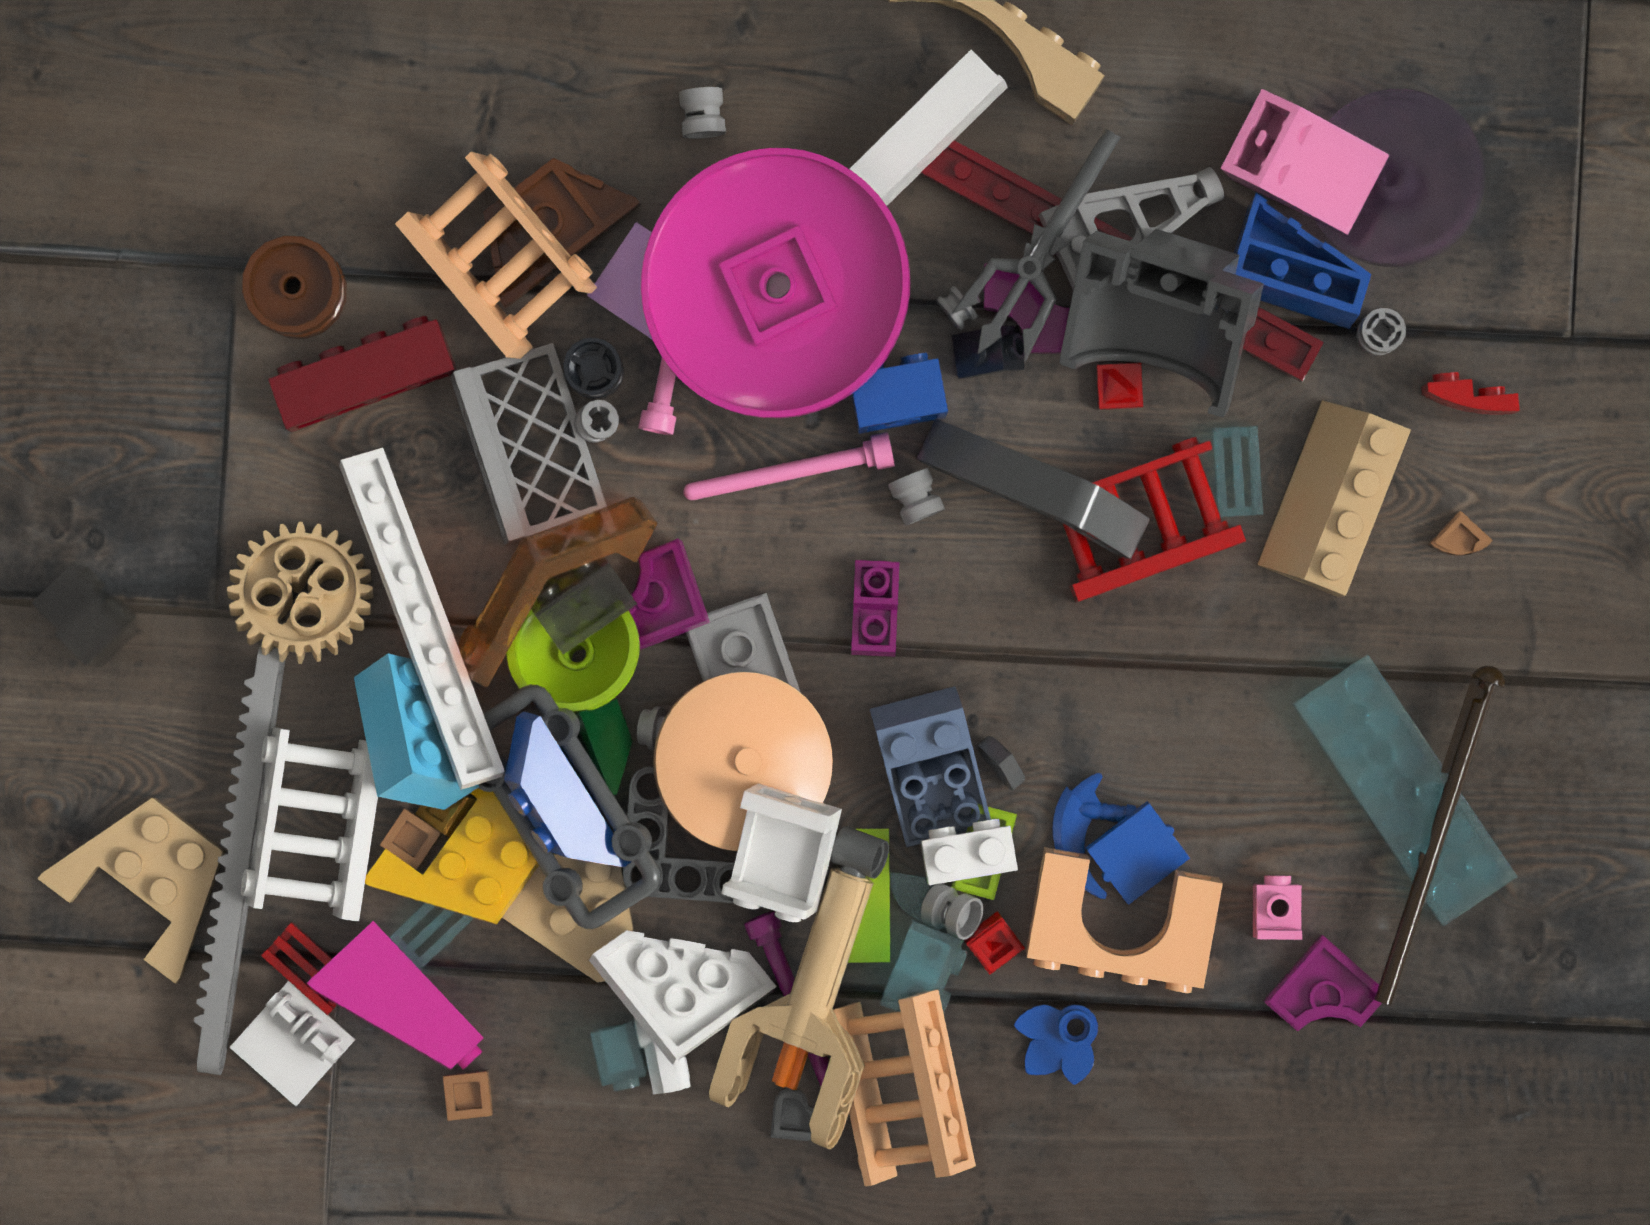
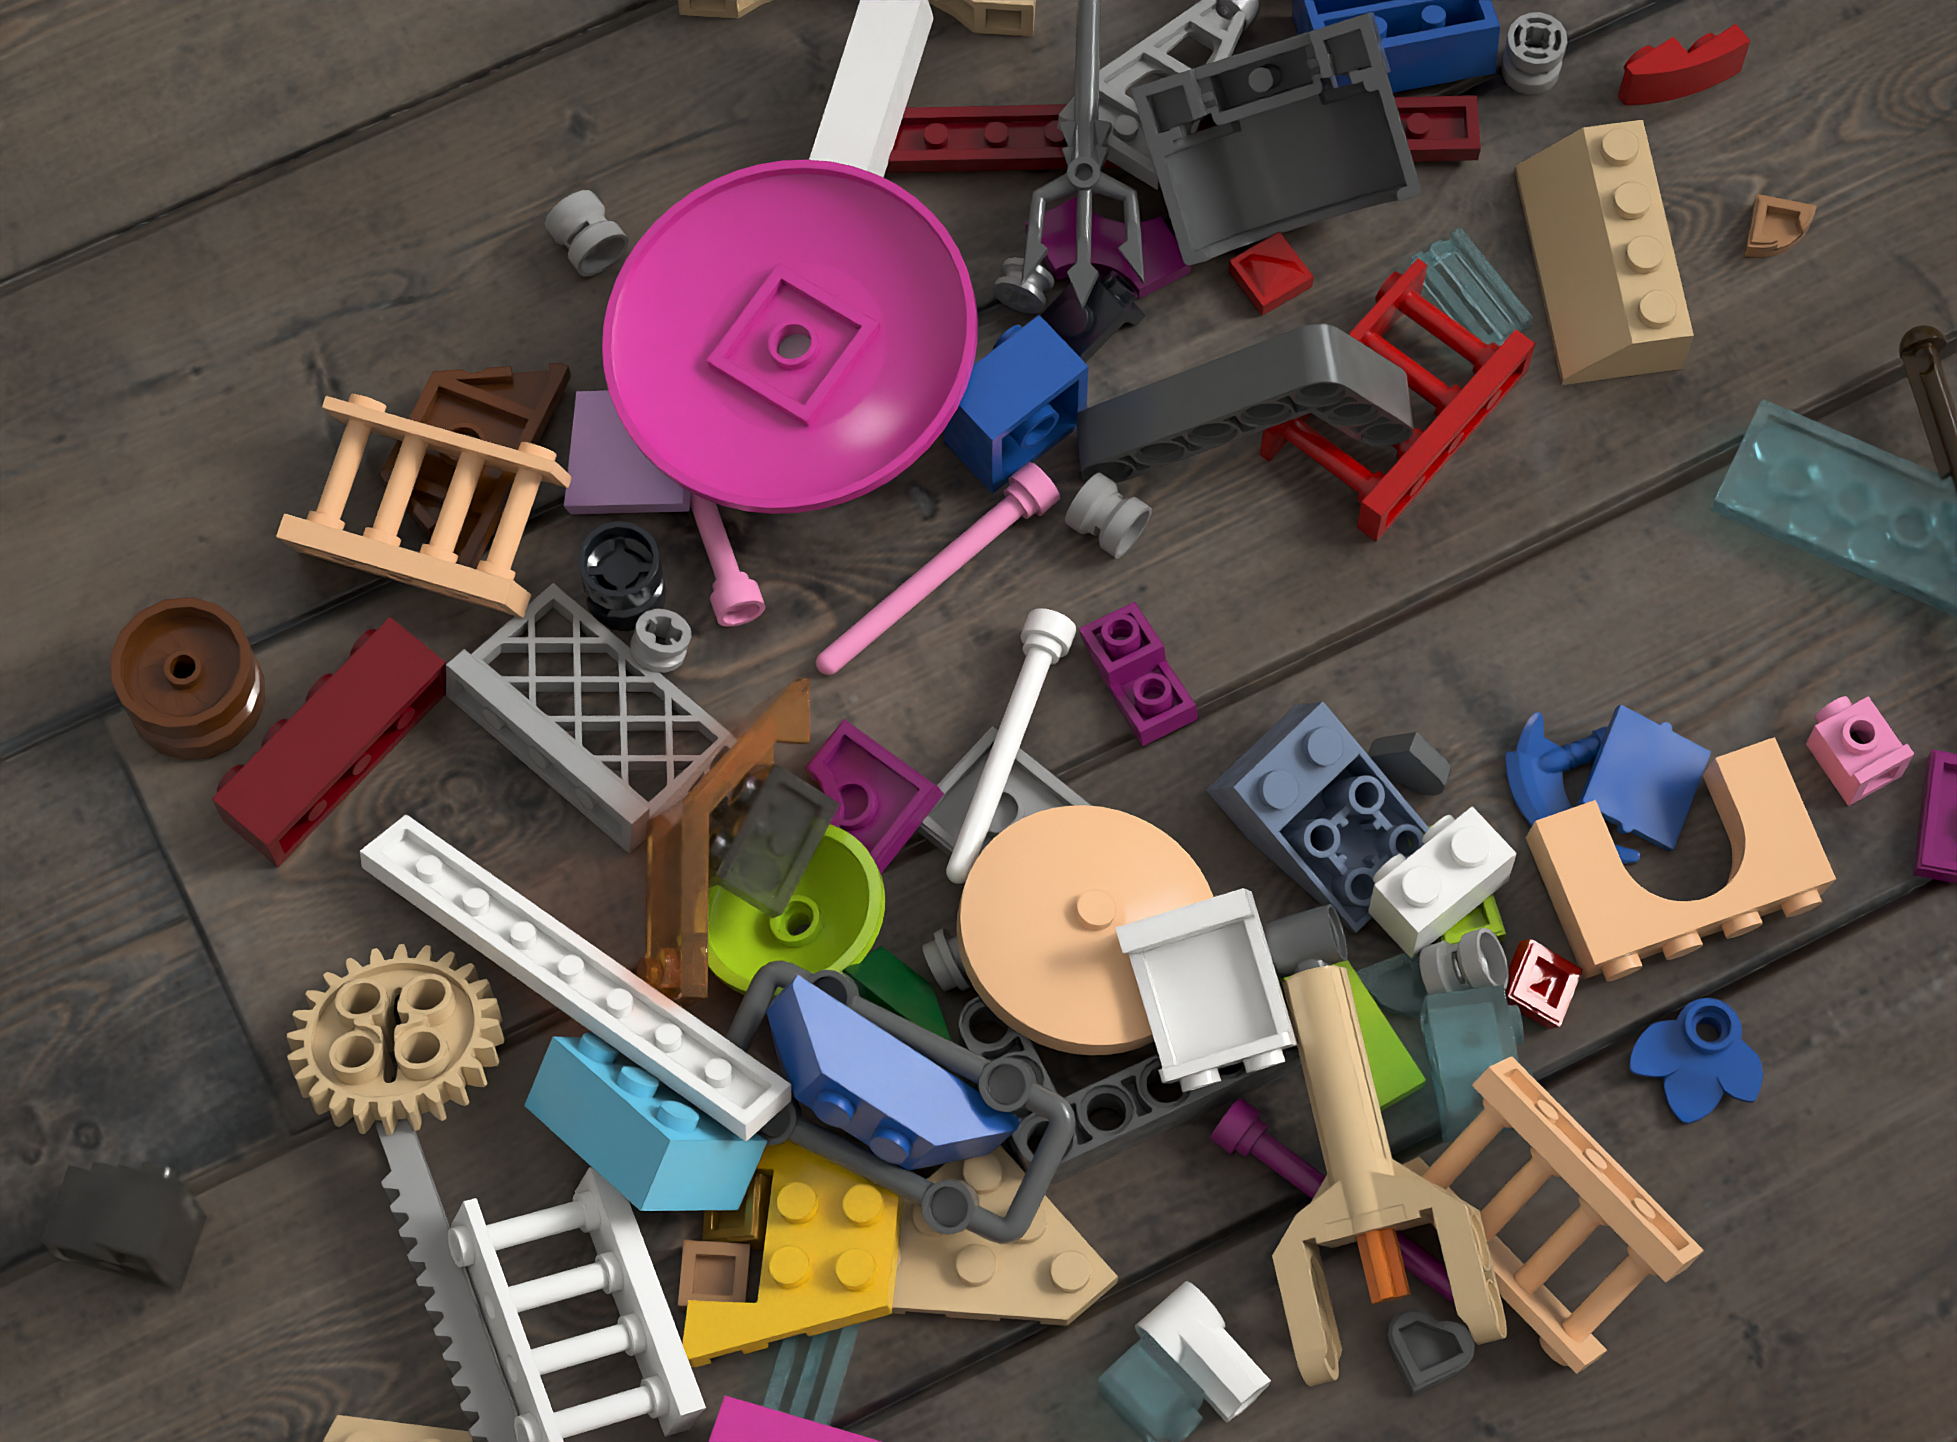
camera: 30 degrees left, 20 degrees down
(680, 987) = (1179, 1255): white plate -> none
(829, 557) = (1045, 639): none -> white piece

